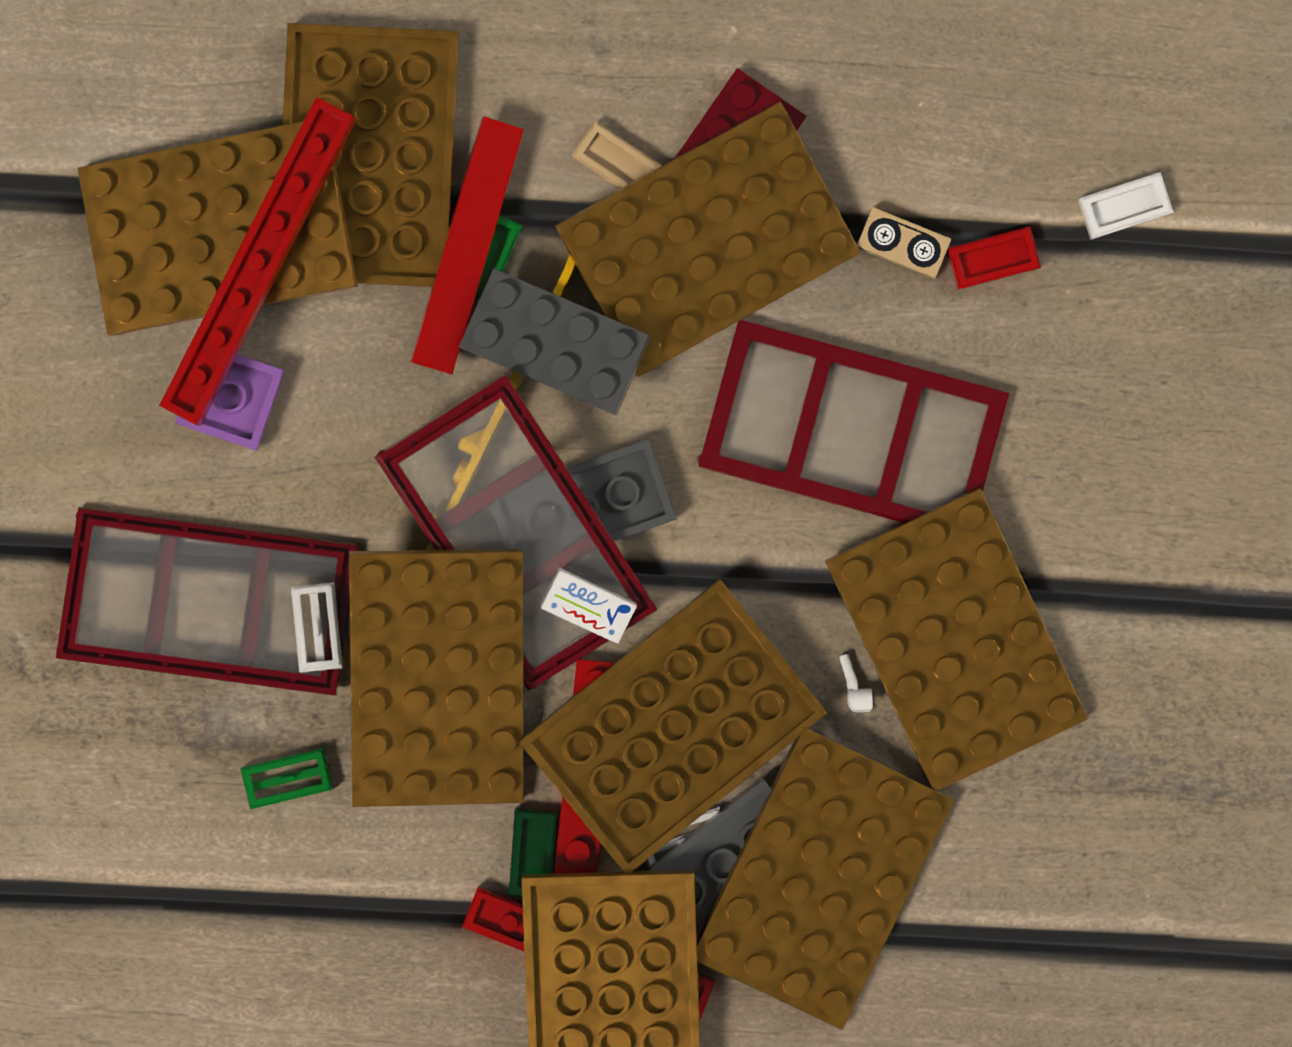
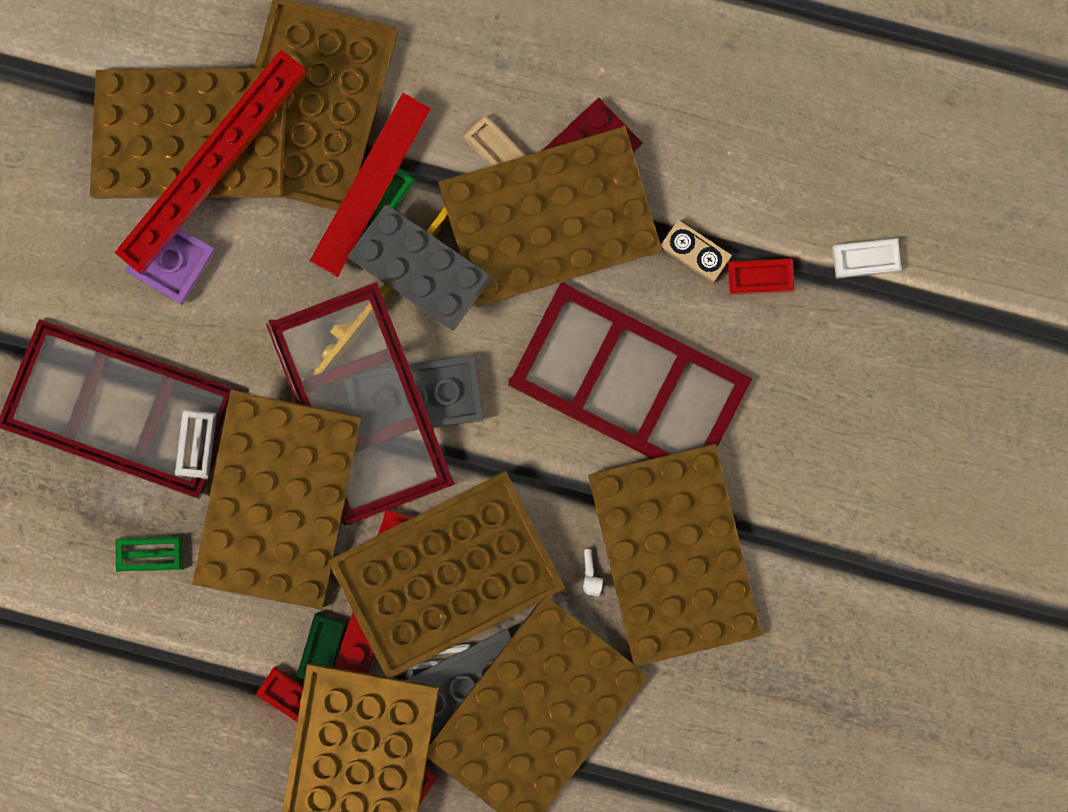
camera: 10 degrees right, 5 degrees down
(588, 605) = (402, 469): white tile -> none

